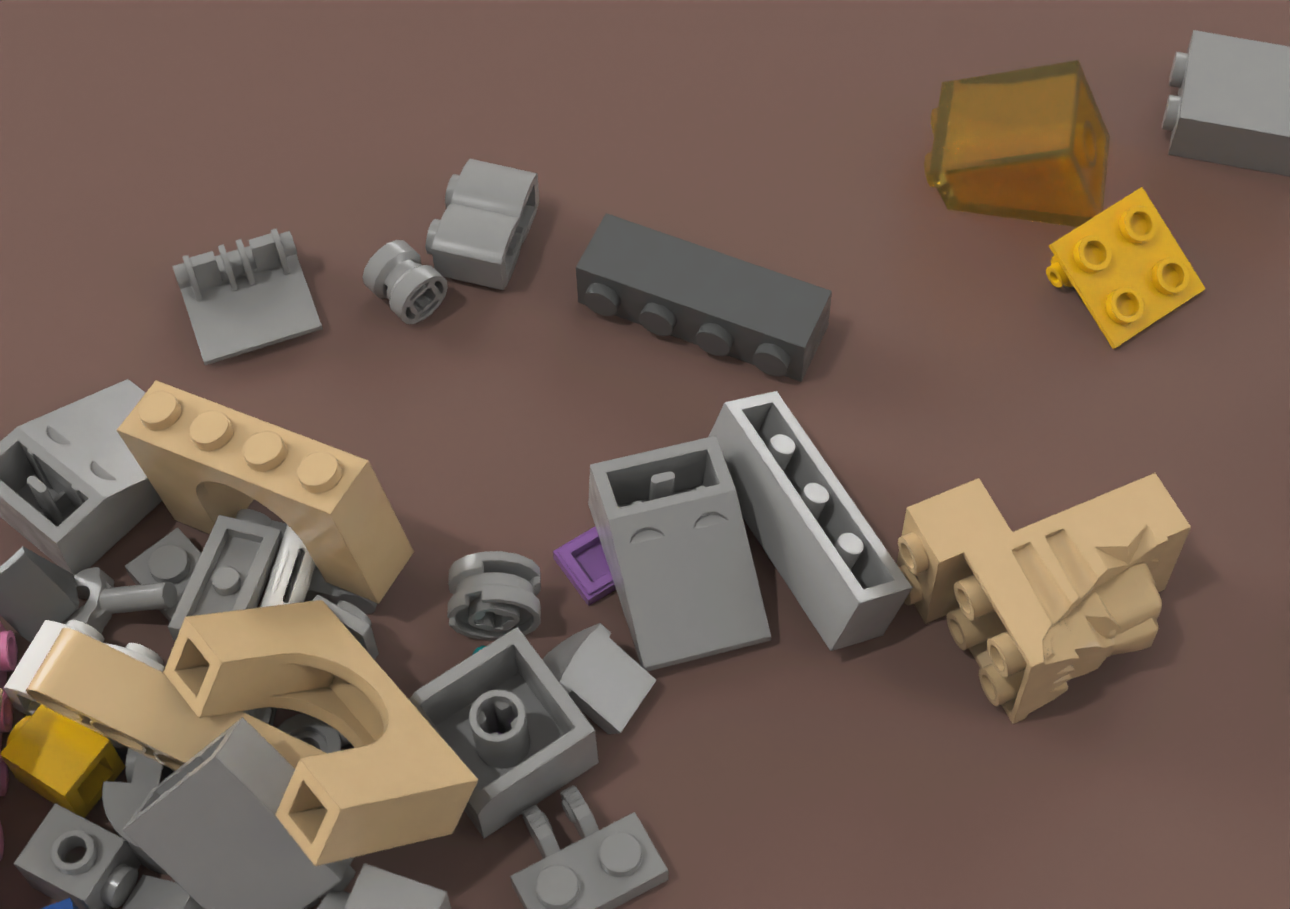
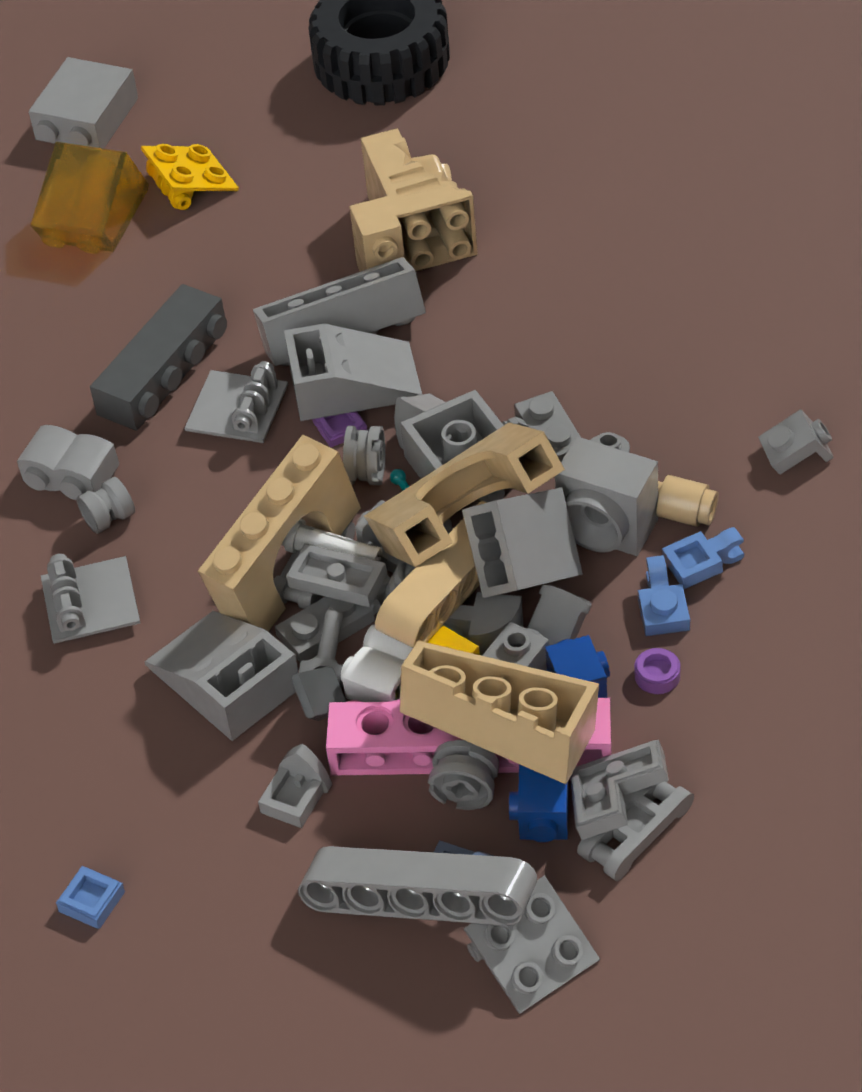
camera: 80 degrees left, 10 degrees down
(616, 410) = (238, 404): none -> light grey hinge

